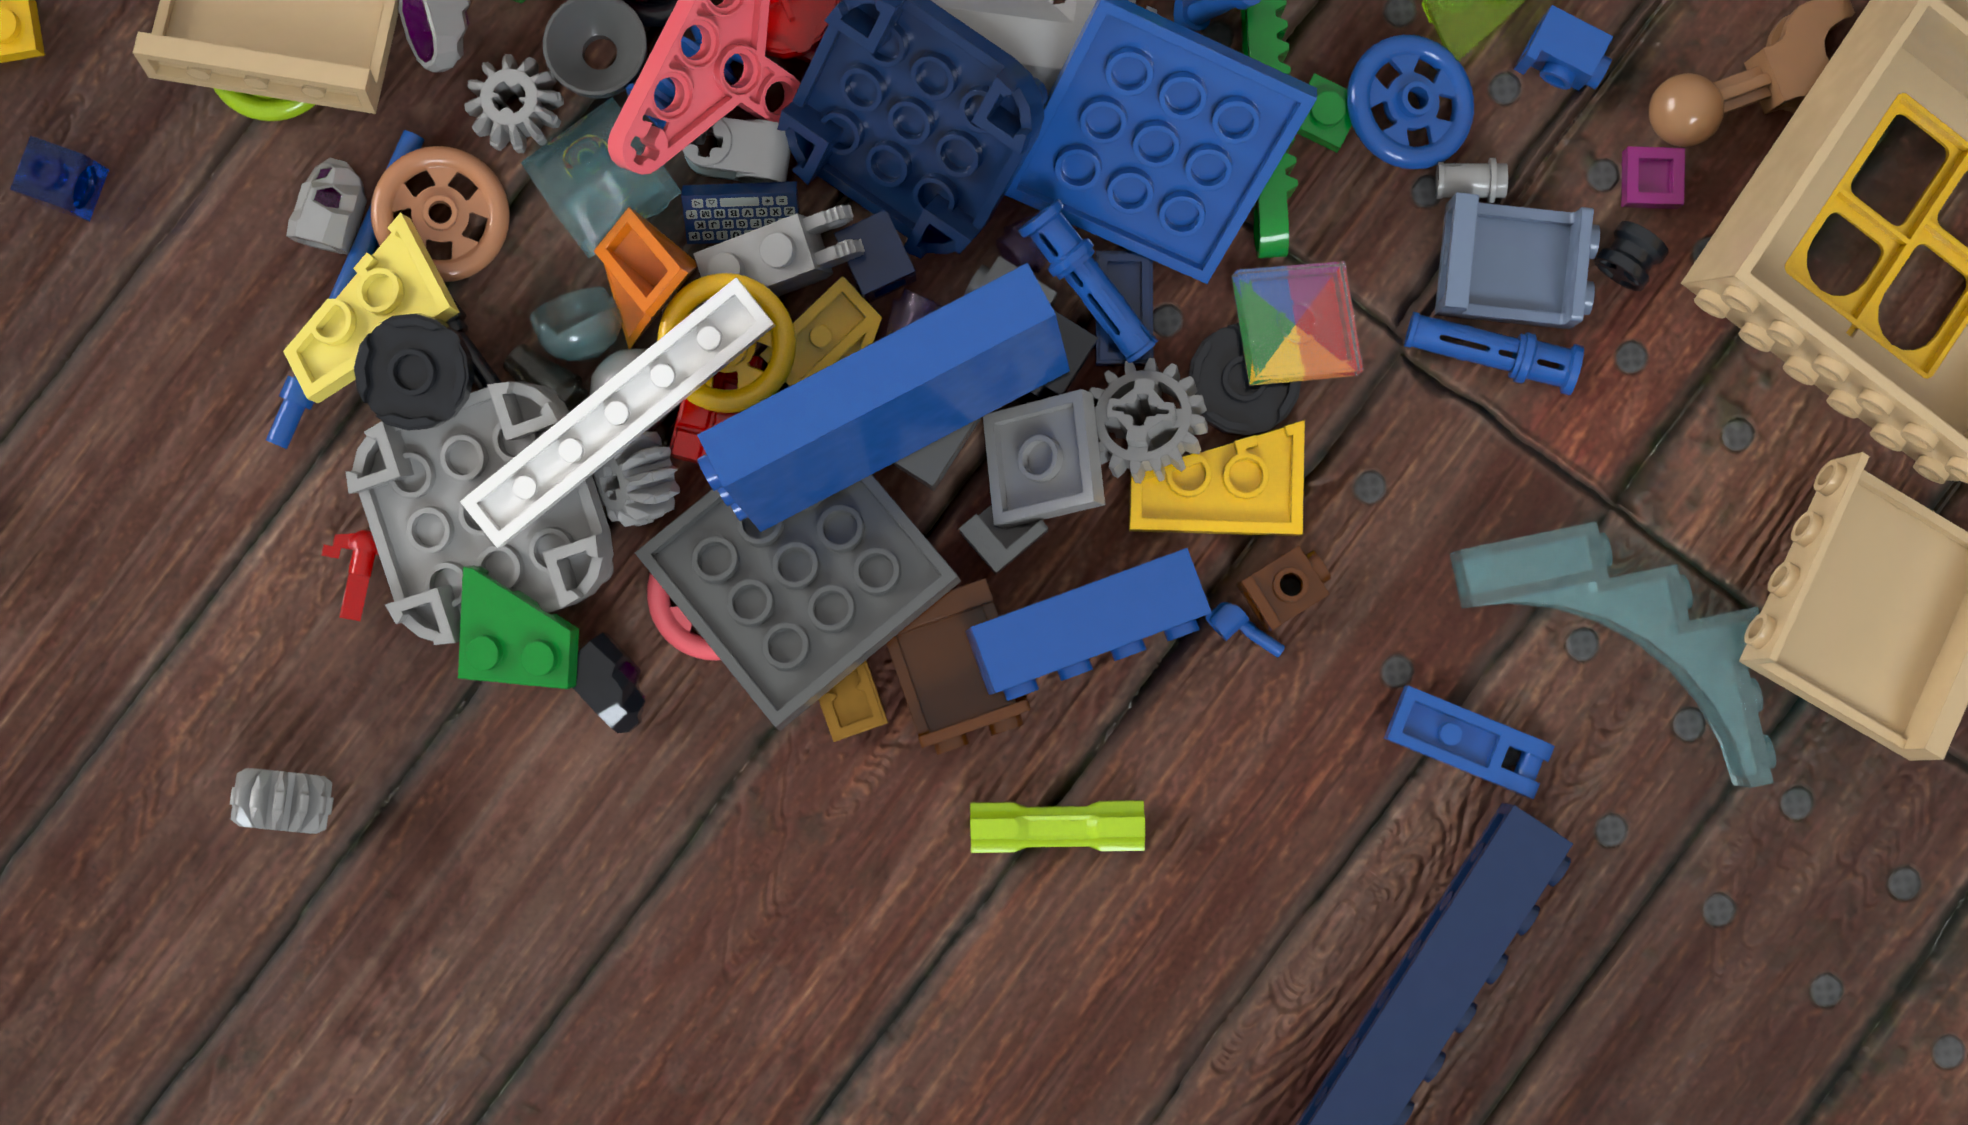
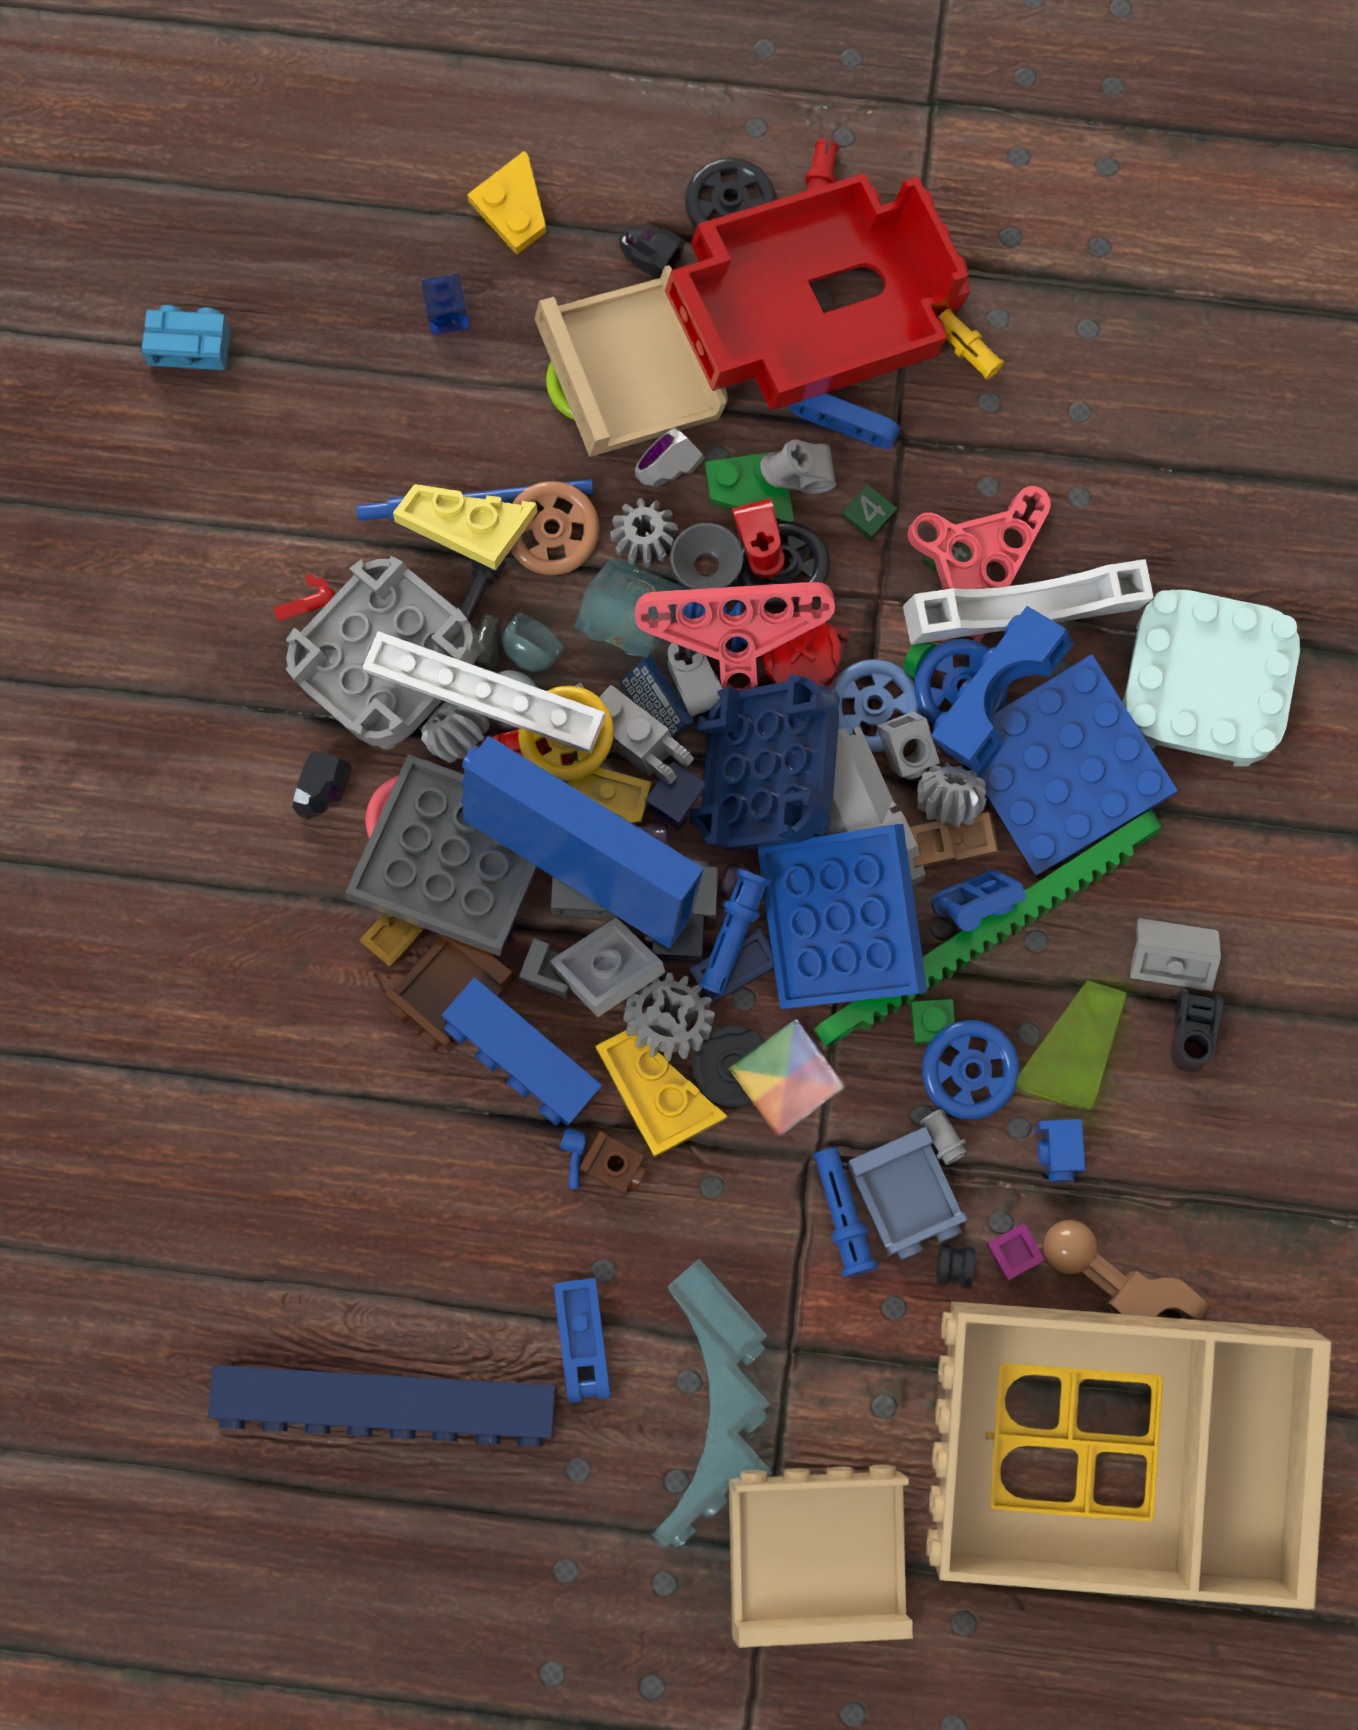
camera: 60 degrees right, 10 degrees down
(281, 801) = (142, 634): light grey gear -> none
(329, 208) = (518, 463): light grey rock -> none
(414, 371) = (443, 563): black tile -> none
(511, 637) = (315, 711): green wing -> none
(642, 271) = (585, 662): orange slope -> none
(1101, 826) = (368, 1082): lime axle -> none

